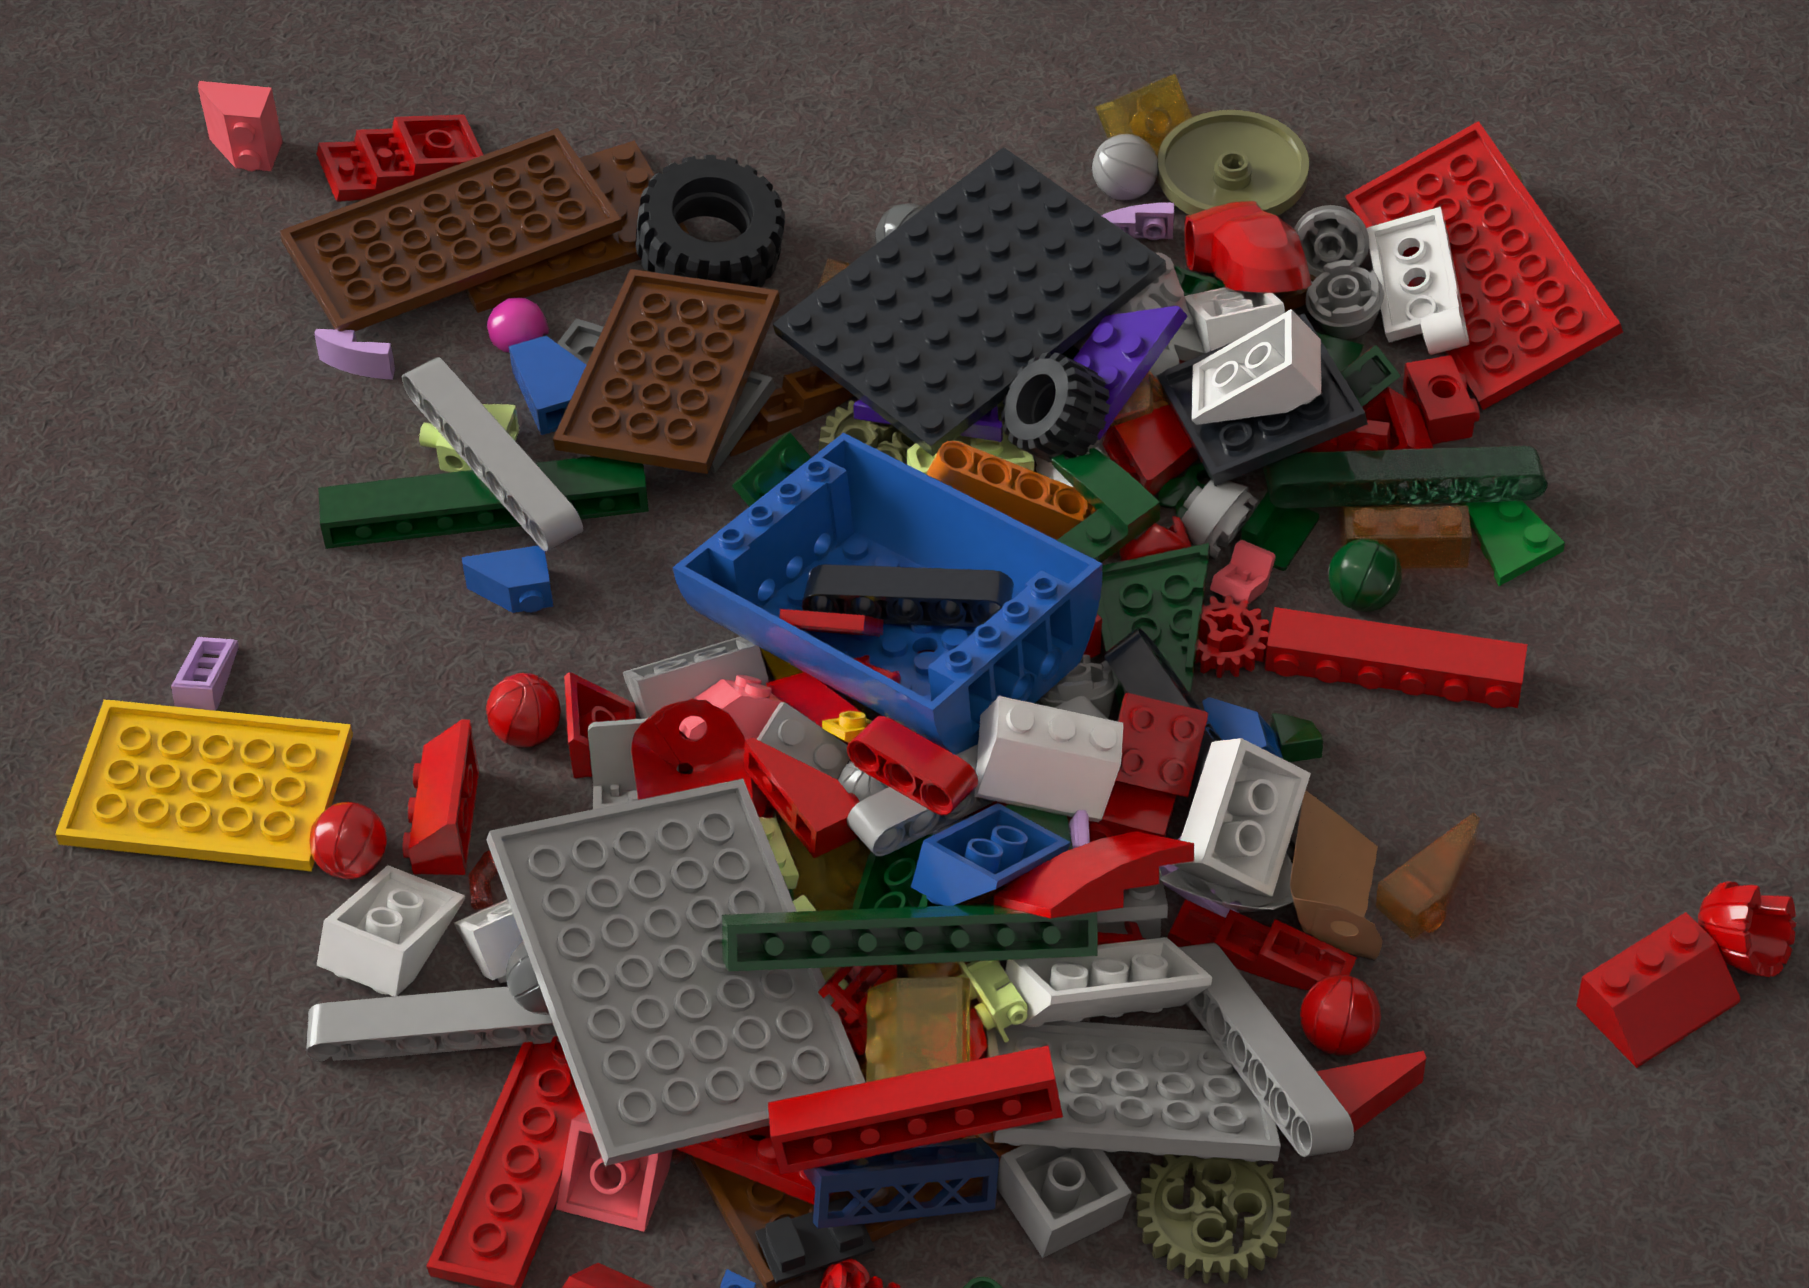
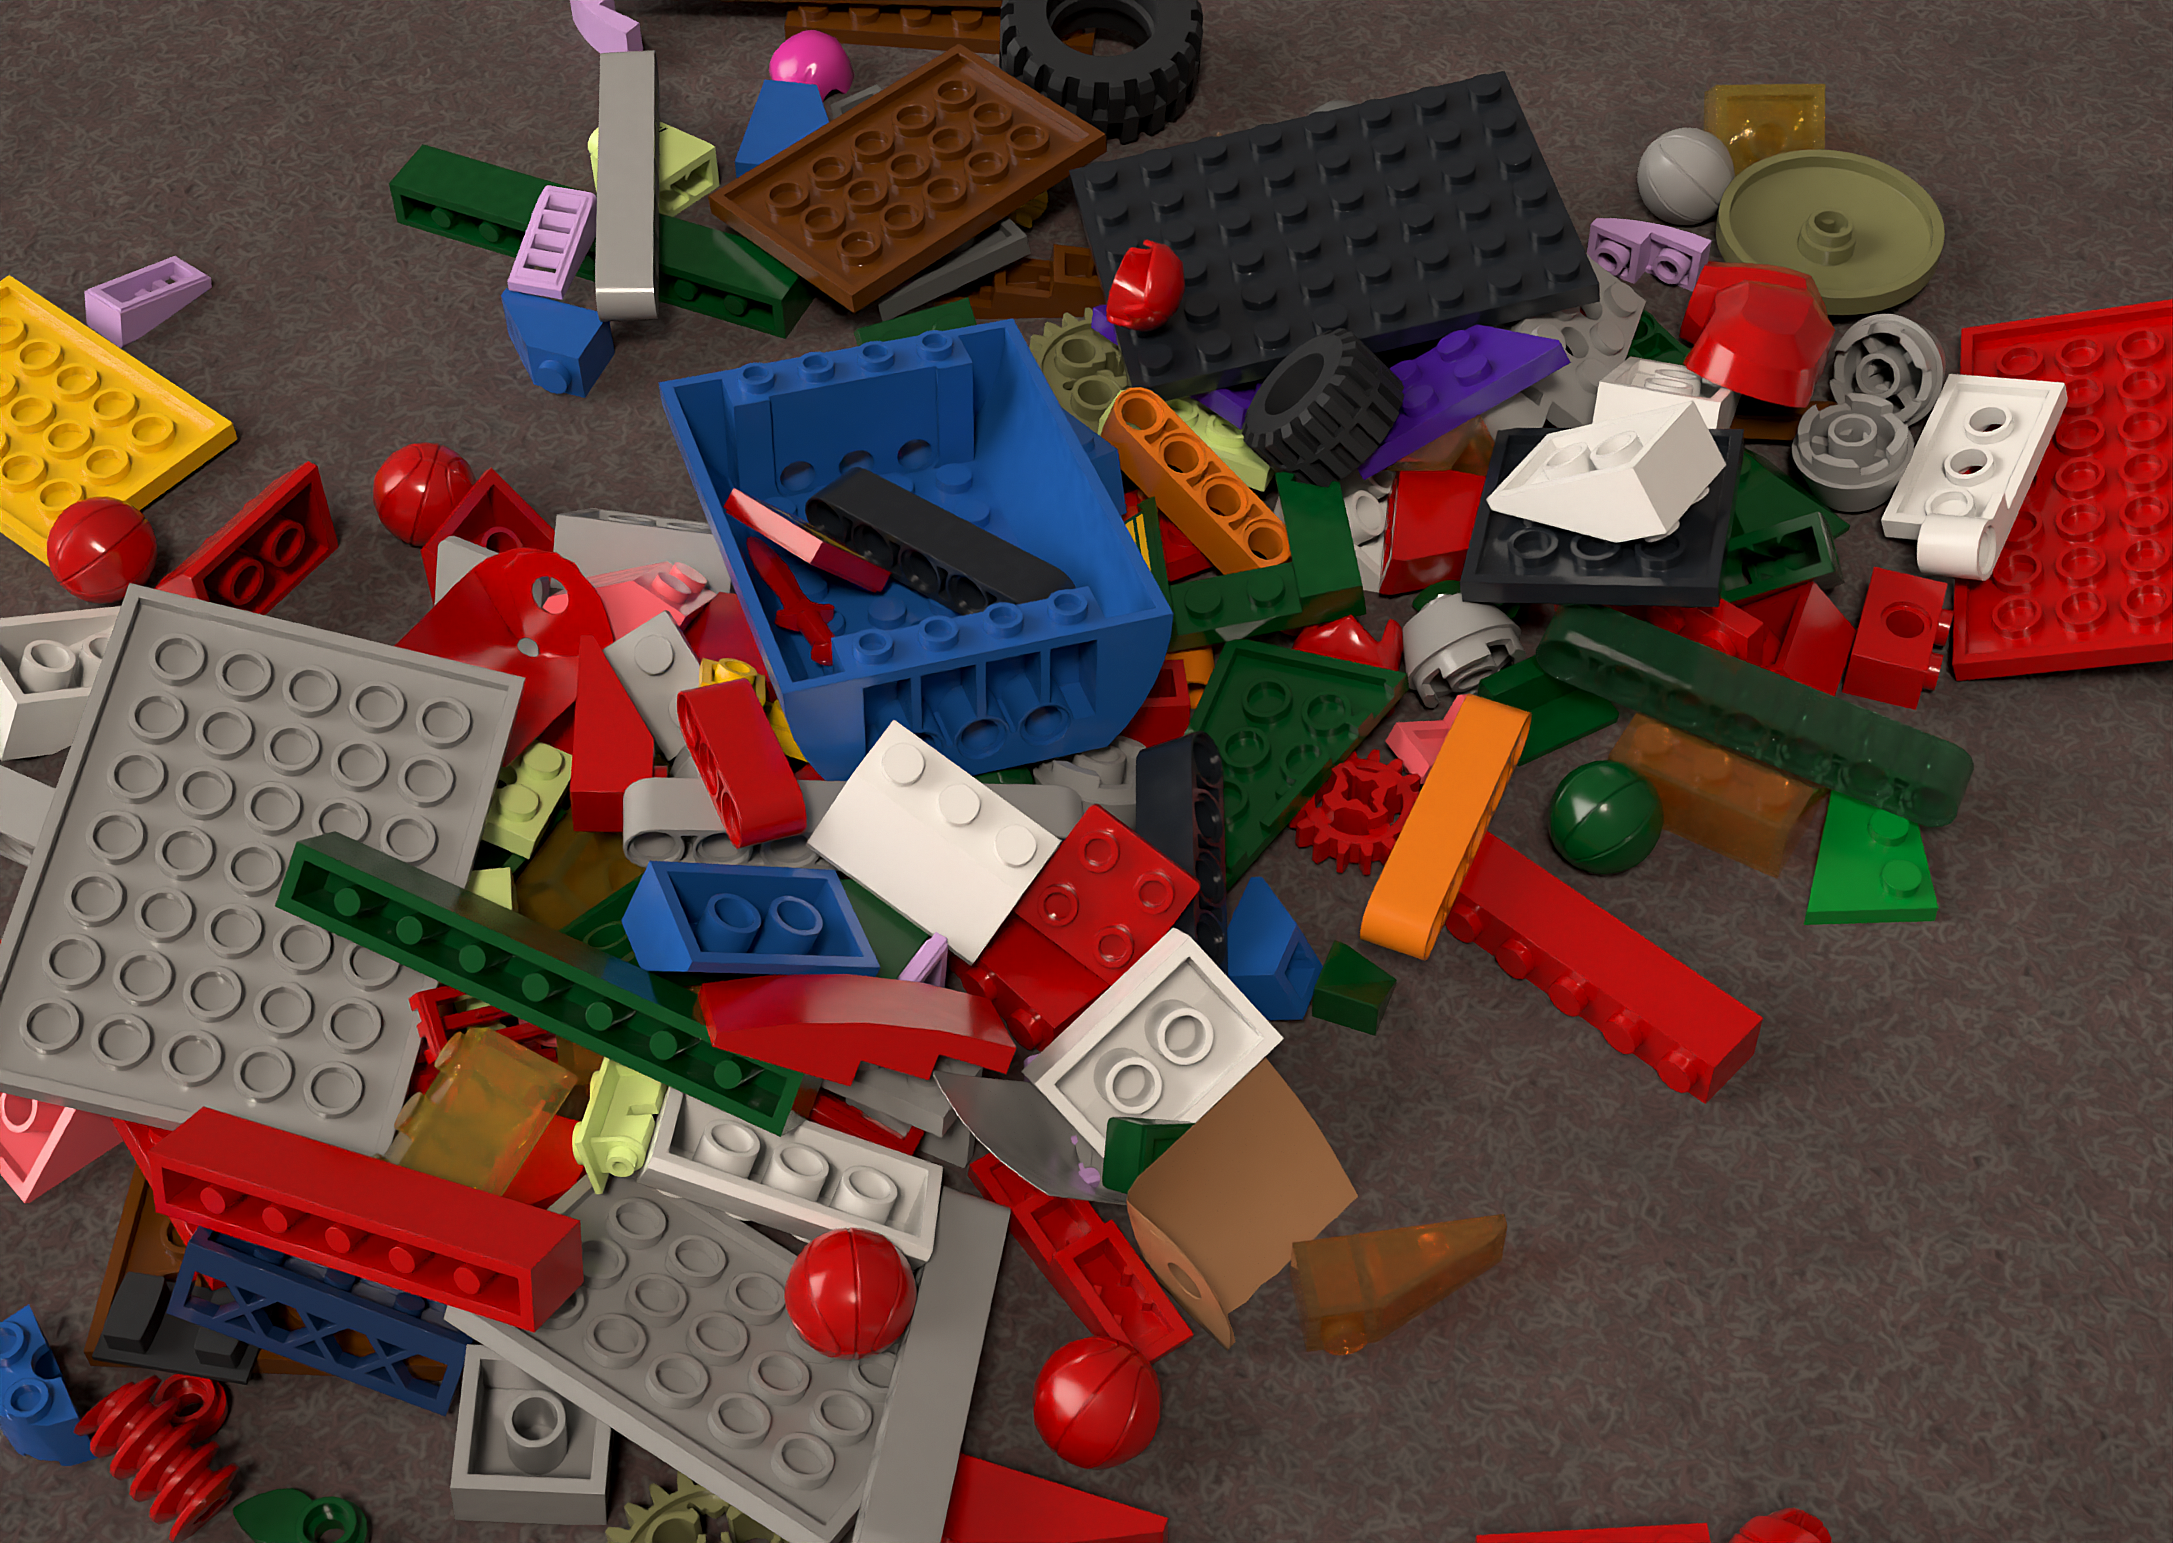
camera: 30 degrees right, 0 degrees up
(471, 490) = (558, 211): none -> lavender slope
(903, 378) = (1146, 288): none -> red hair
(1187, 1021) = (850, 1293): none -> red piece
(1272, 873) = (1134, 1145): none -> dark green slope
(1295, 619) = (1445, 827): none -> orange beam

